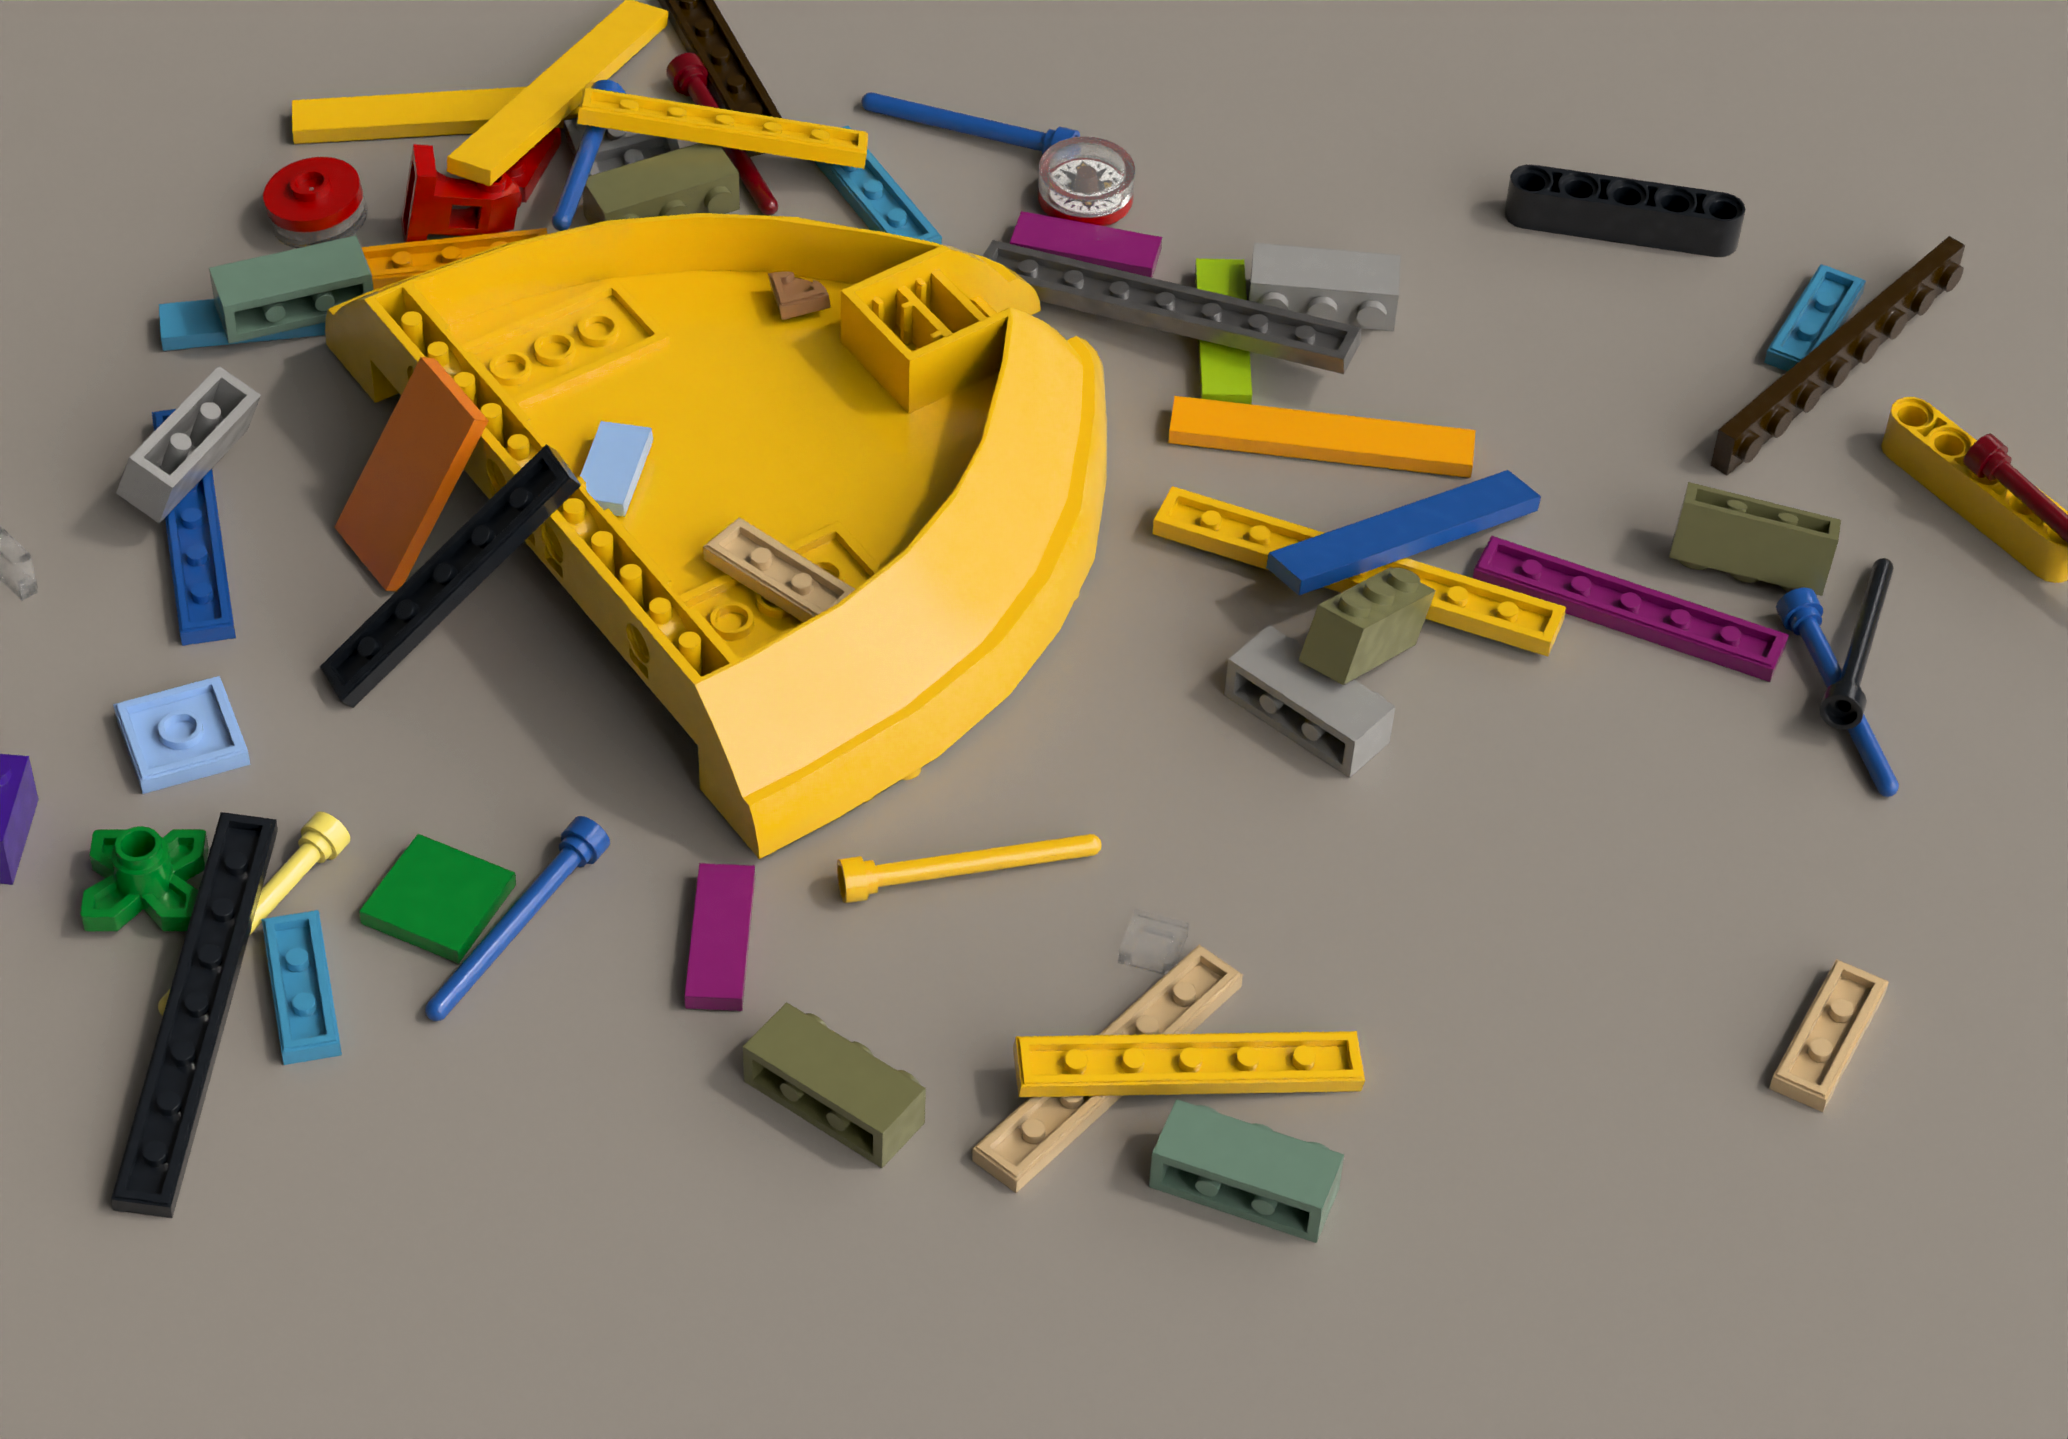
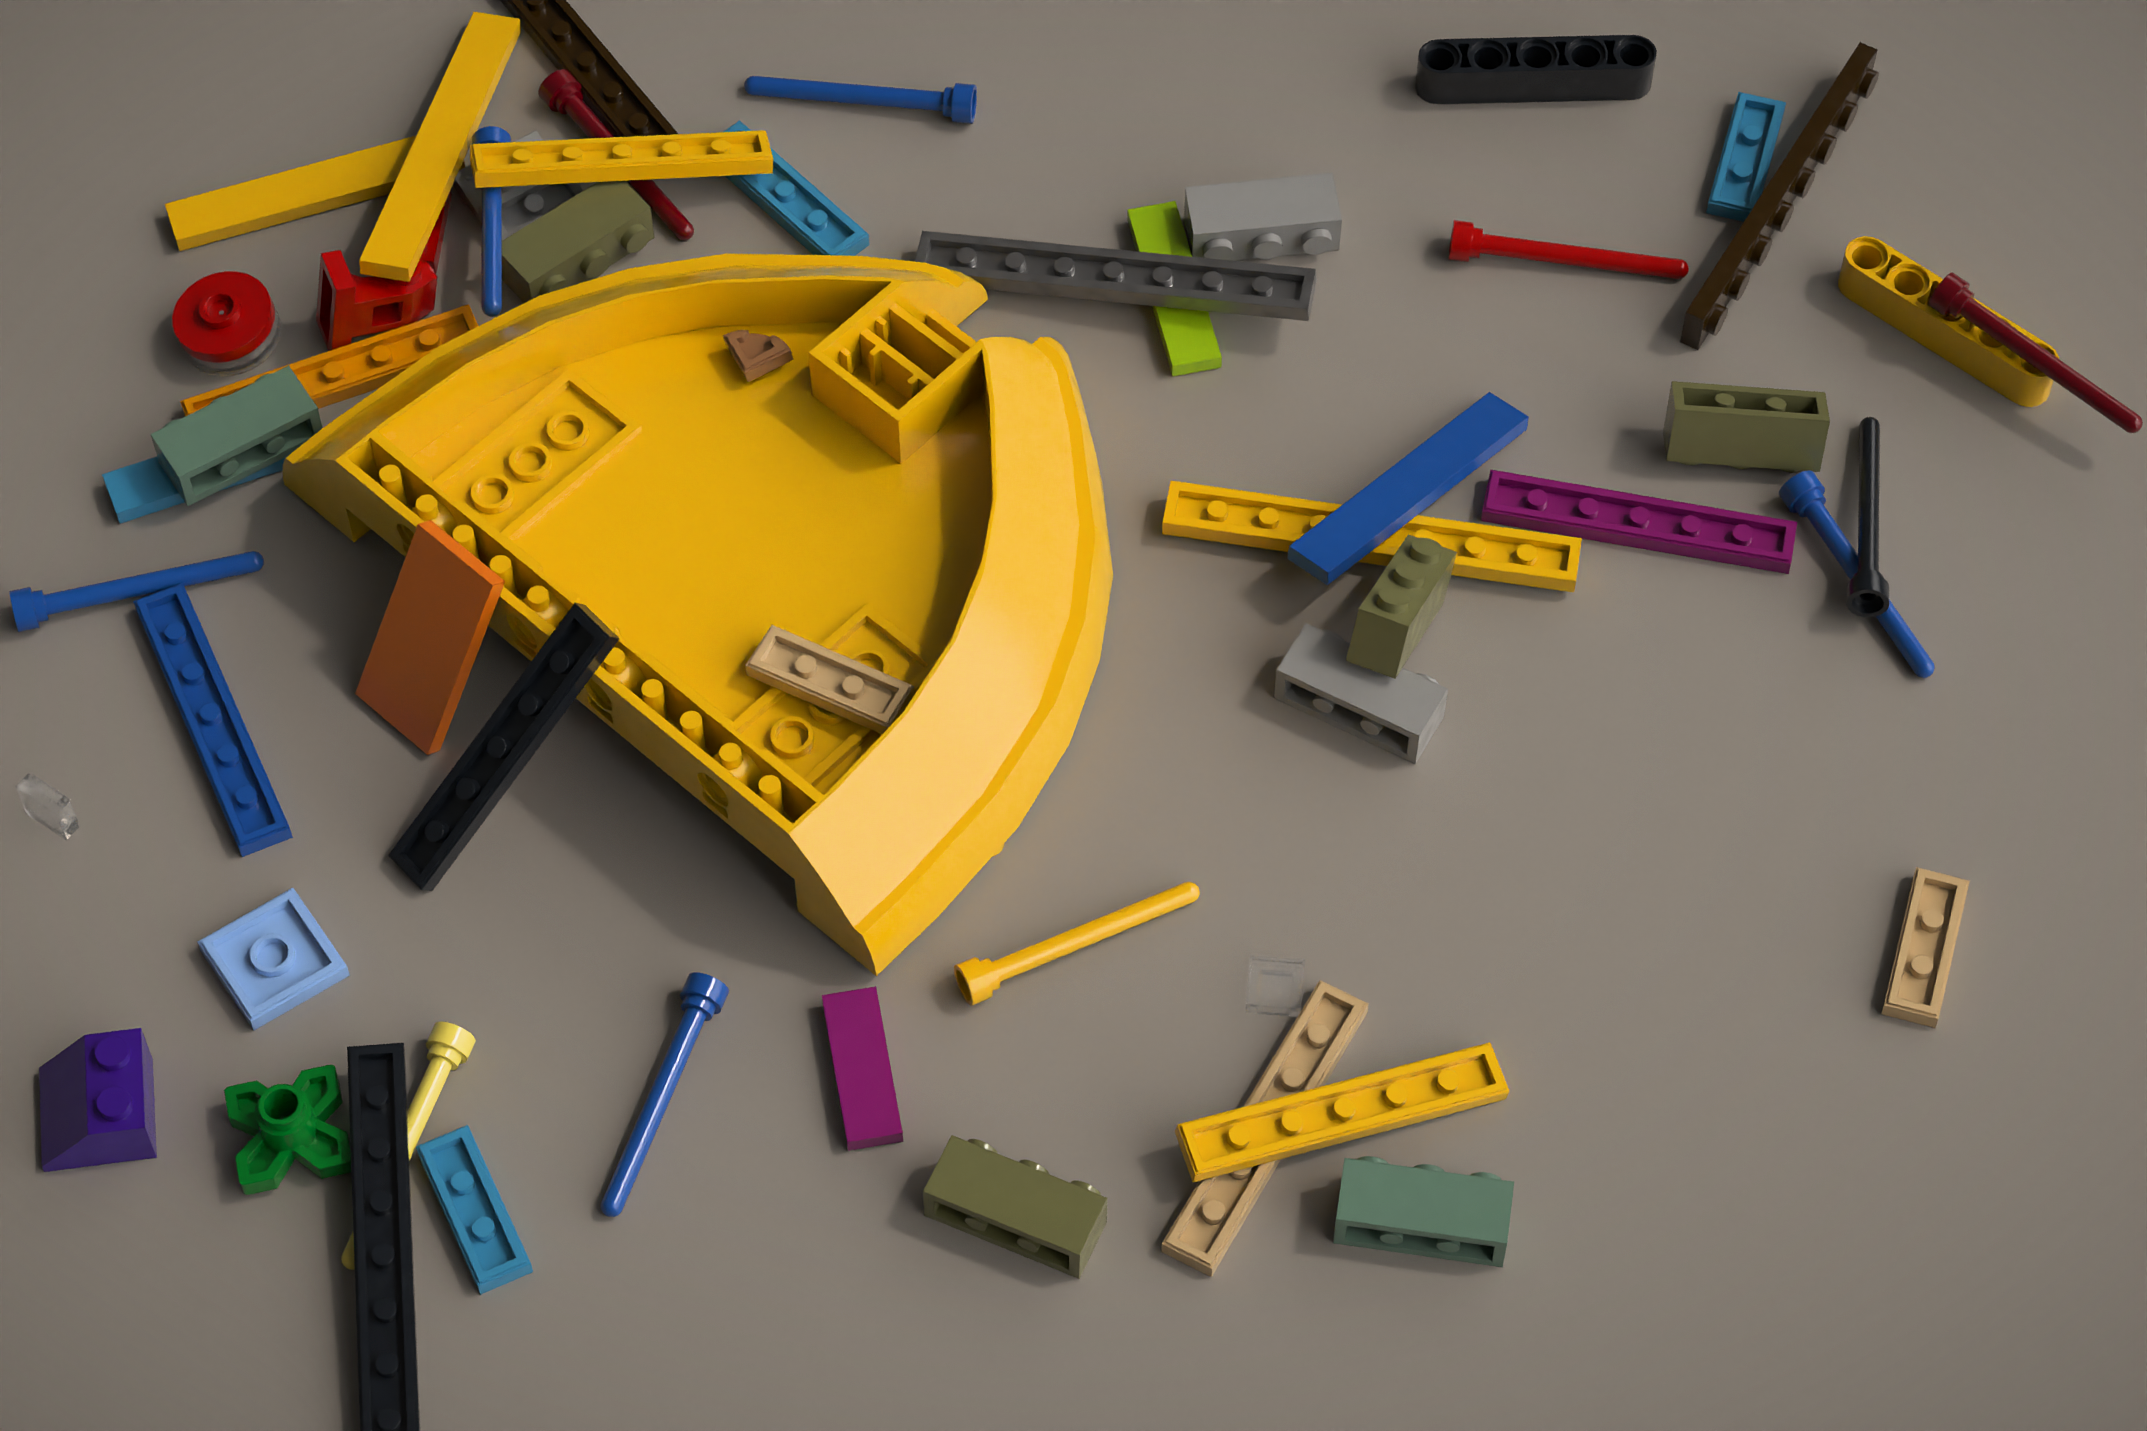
camera: 10 degrees left, 10 degrees up
(59, 400) = (34, 606): none -> blue piece
(188, 444) = (190, 641): light grey brick -> none
(438, 898) = (578, 1085): green tile -> none
(616, 464) = (630, 588): light blue tile -> none
(1086, 181) = (998, 143): clear piece -> none
(1089, 243) = (1015, 214): magenta tile -> none
(1322, 436) = (1299, 389): light orange tile -> none
(1523, 342) = (1471, 242): none -> red piece

